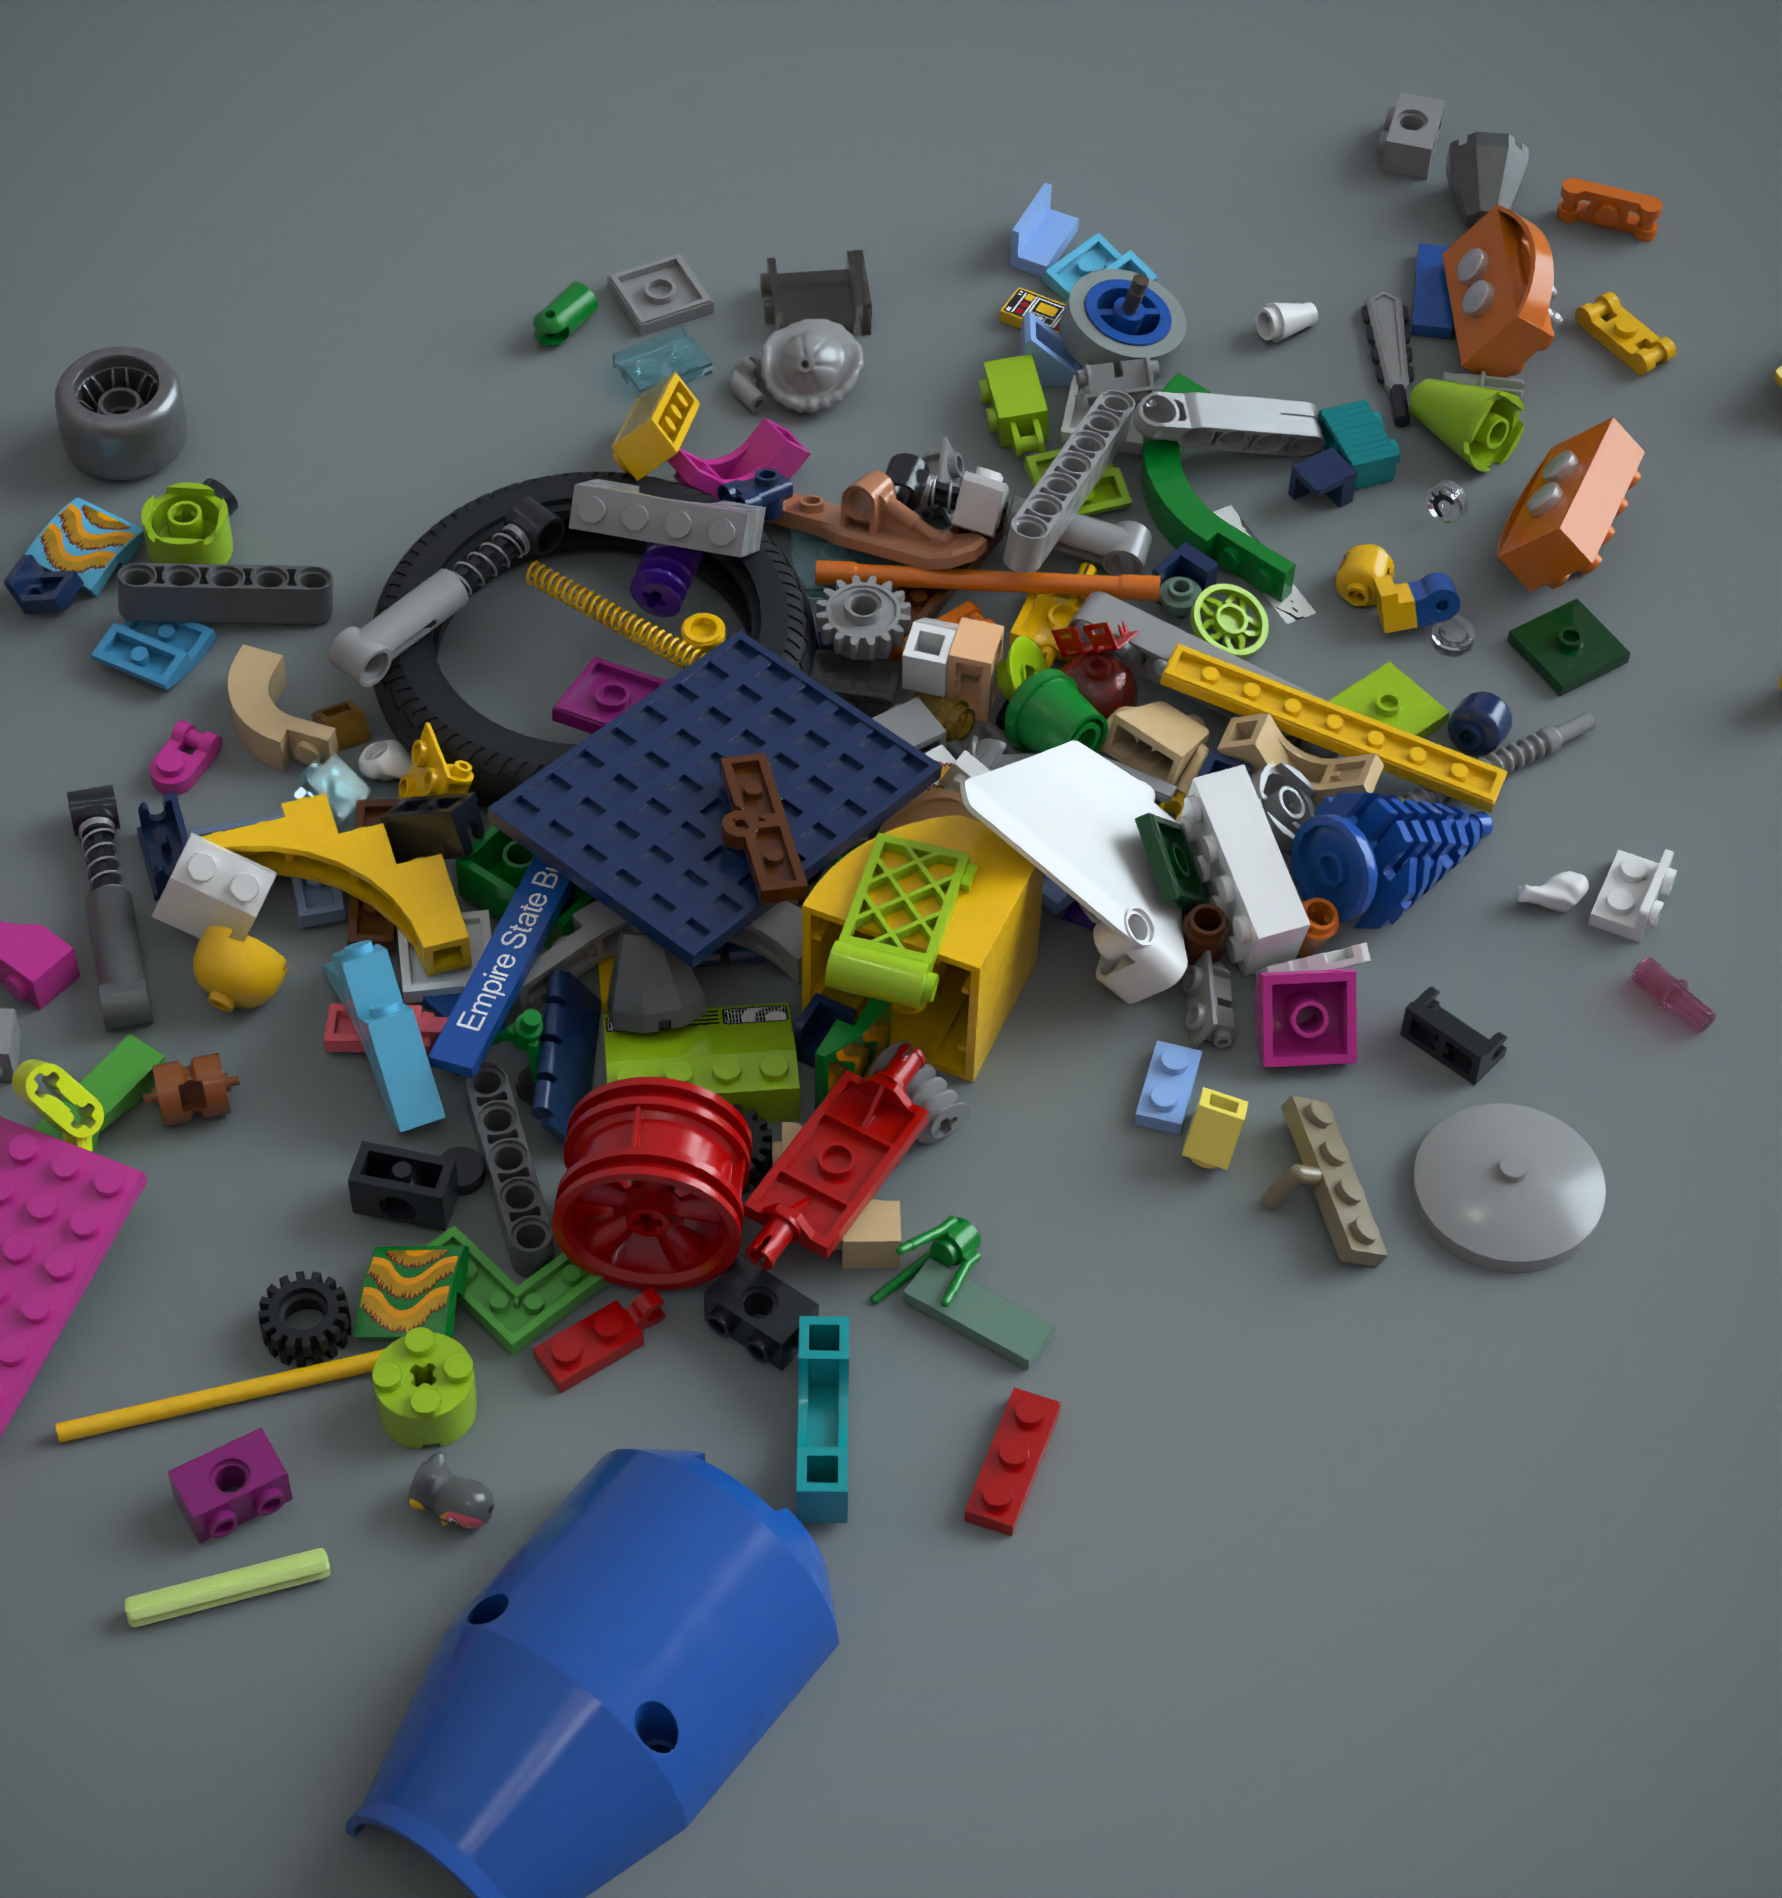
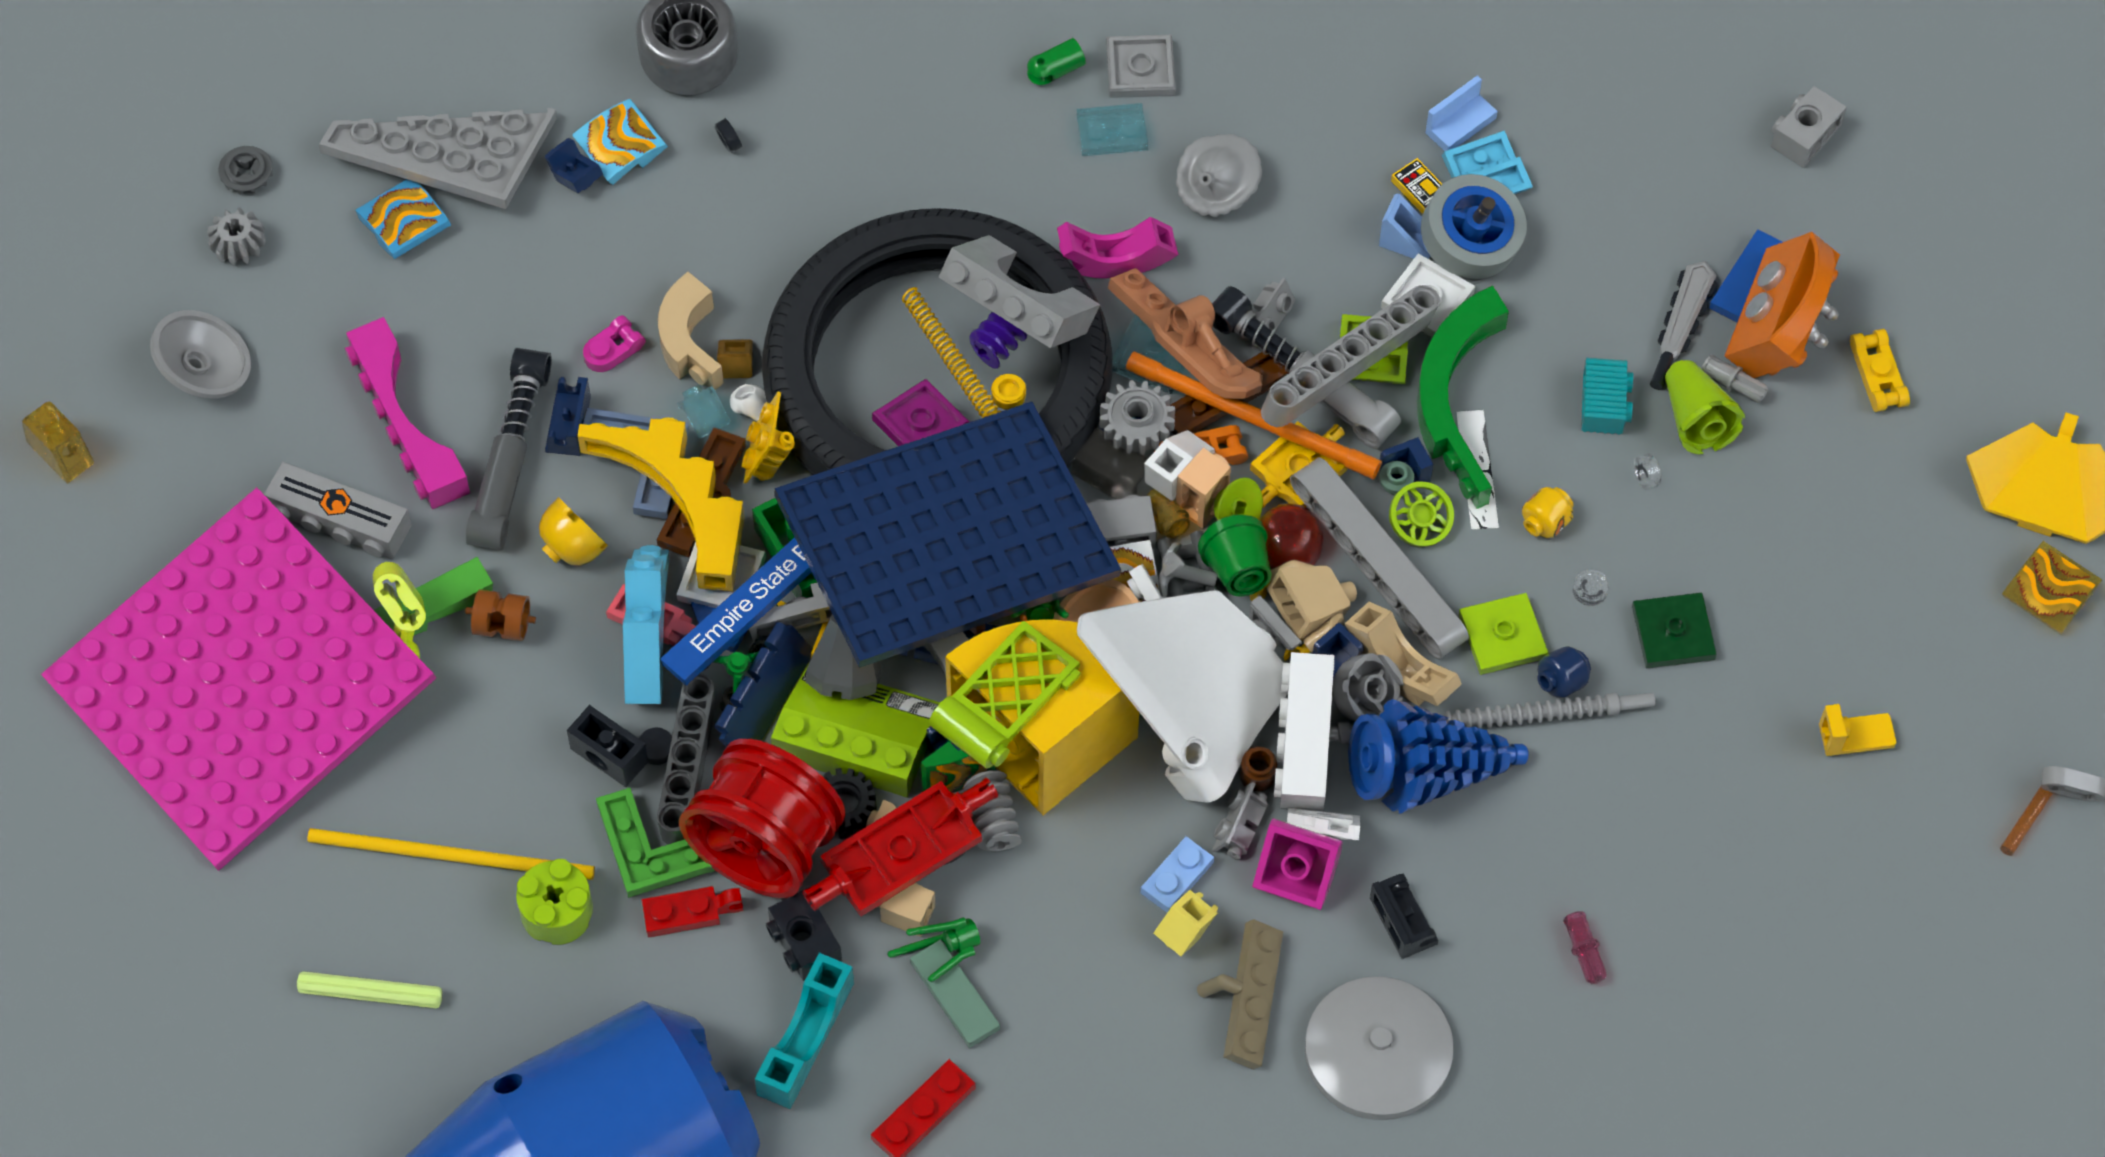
camera: 25 degrees right, 10 degrees up
(155, 650) = (632, 244): dark azure slope -> none
(187, 526) = (692, 159): lime brick -> none
(213, 889) = (578, 469): white slope -> none
(225, 593) = (696, 221): dark grey beam -> none
(242, 1463) = (383, 909): magenta brick -> none
(298, 1296) = (505, 836): black tyre -> none
(368, 651) = (759, 319): light grey piece -> none
(411, 1290) = (578, 826): slope -> none
(433, 826) = (746, 475): black hinge -> none
(451, 1498) = (537, 987): dark grey animal -> none
(655, 427) = (1064, 196): yellow brick -> none
(744, 383) = (1164, 170): light grey arm -> none
(761, 828) = (956, 577): reddish brown hinge -> none
(764, 490) = (1112, 283): dark blue plate -> none
(825, 294) = (1256, 113): clear smoke panel -> none
(981, 502) = (1270, 352): white slope -> none
(1015, 404) = (1357, 266): lime brick -> none
(1097, 643) = (1298, 499): red piece -> none
(1135, 379) = (1454, 281): light grey hinge -> none
(1171, 862) = (1254, 707): dark green plate -> none
(1231, 423) = (1507, 346): light grey piece -> none
(1282, 320) = (1611, 262): white cone -> none
(1323, 924) = (1345, 785): orange cone -> none
(1324, 474) = (1560, 415): dark blue panel -> none
(1334, 727) = (1443, 637): yellow tile -> none
(1415, 602) = (1570, 551): leg -> none
(1485, 173) = (1839, 194): dark grey cone -> none
(1557, 893) = (1546, 832): white animal -> none
(1570, 506) = (1729, 518): orange piece -> none
(1609, 208) = (1930, 251): orange plate -> none
(1631, 894) = (1601, 854): white bracket -> none

